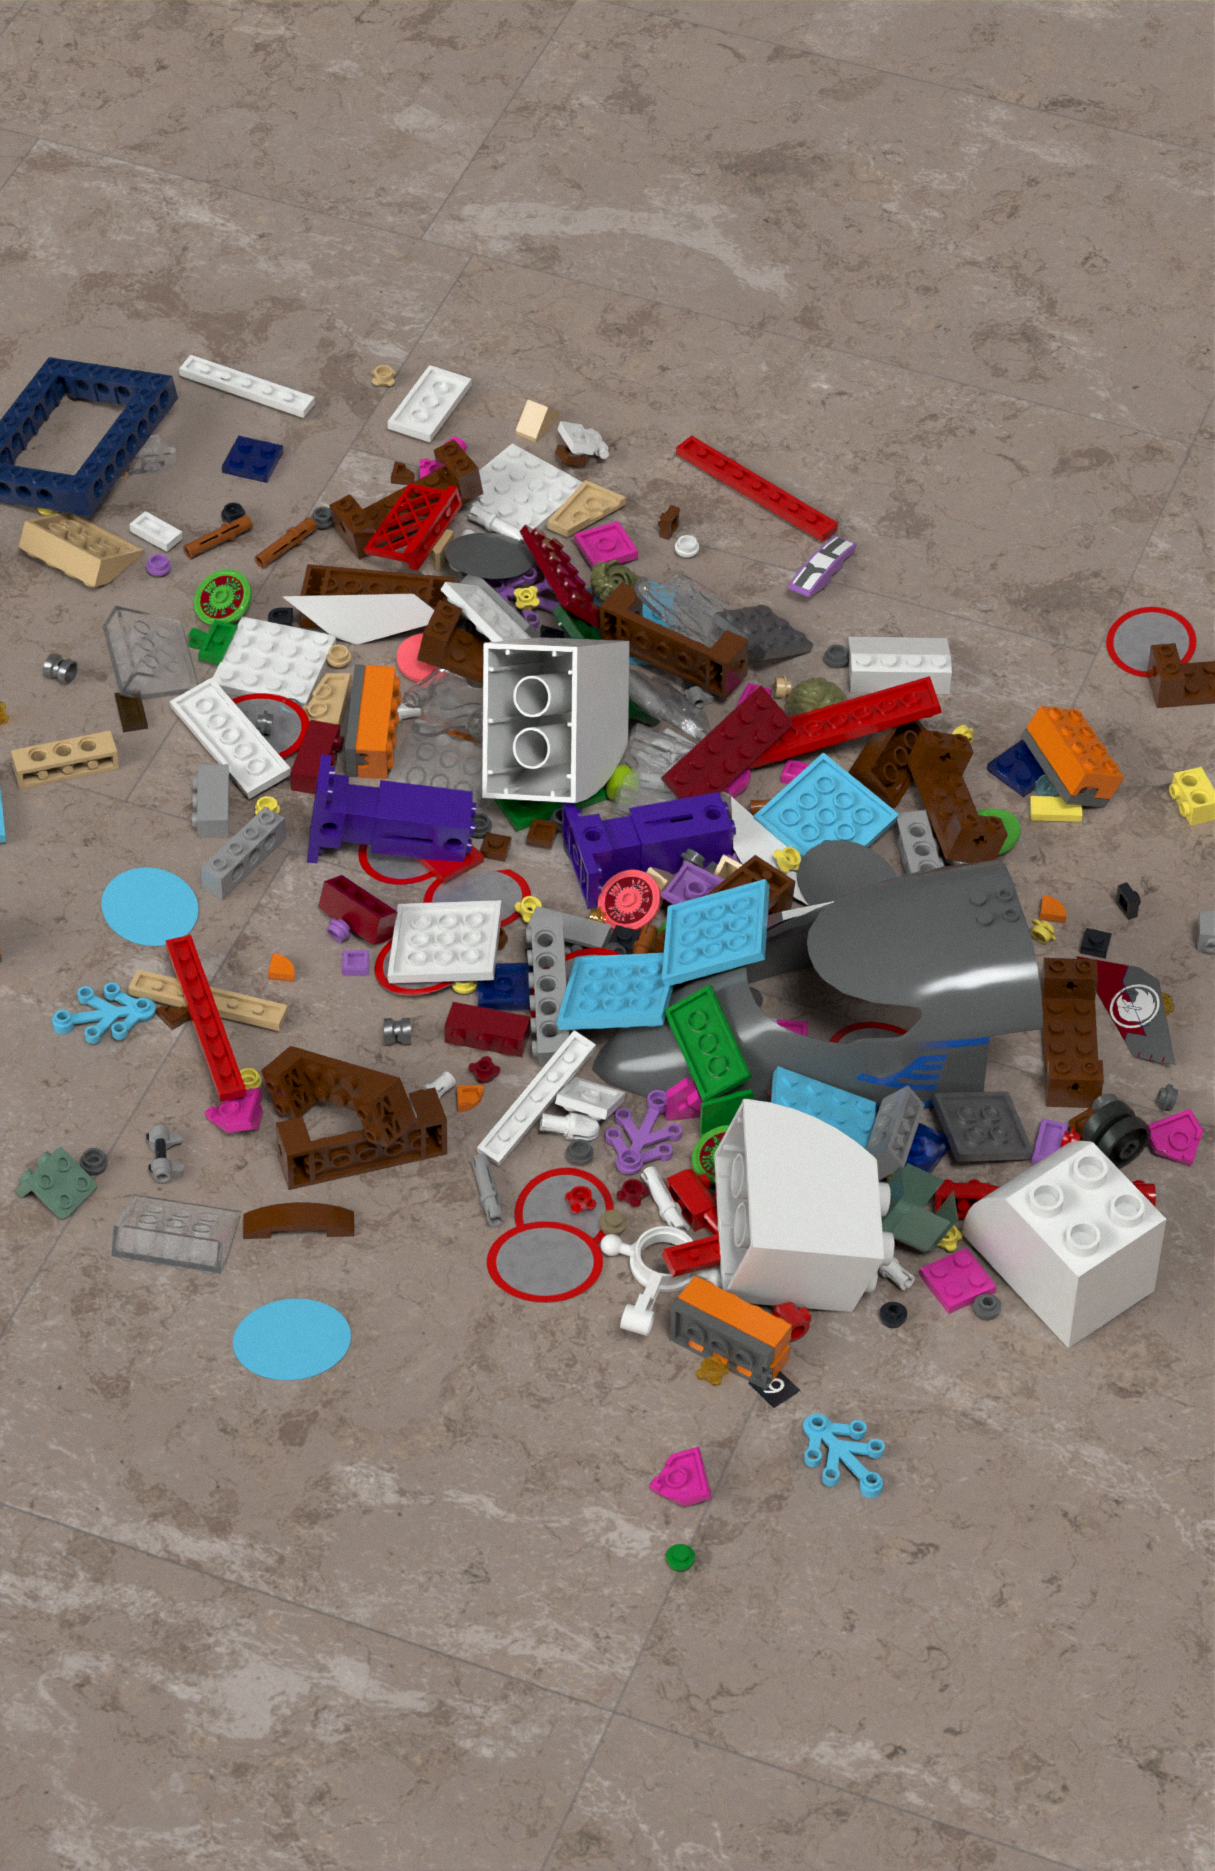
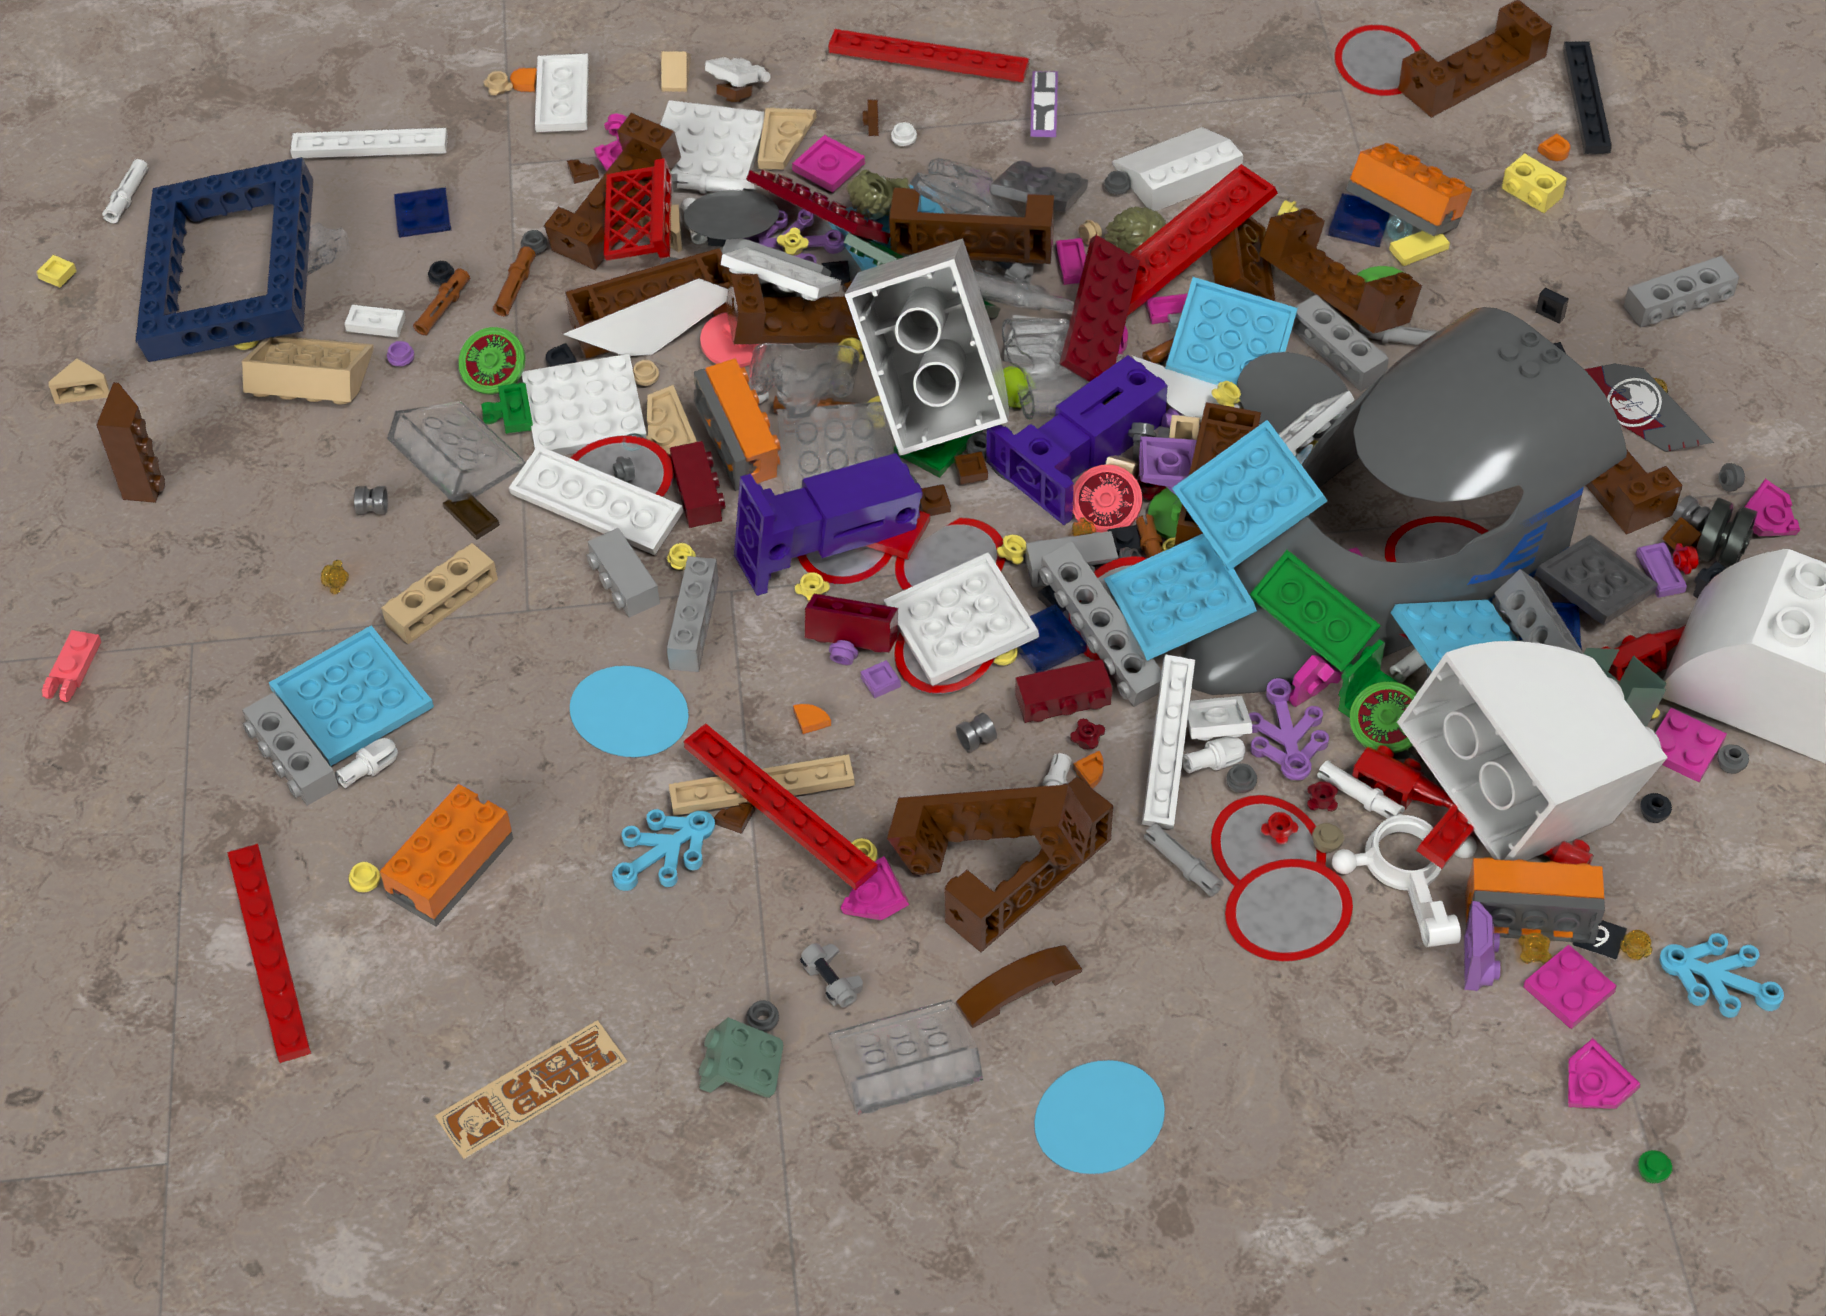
camera: 25 degrees left, 5 degrees up
(26, 355) = (121, 198): none -> white pin
(352, 870) = (810, 584): none -> light yellow plate
(406, 380) = (524, 79): none -> orange tile
(661, 1348) = (1480, 949): none -> medium lavender slope
(718, 1409) = (1569, 986): none -> dark pink plate
(794, 1397) = (1638, 938): none -> clear yellow plate

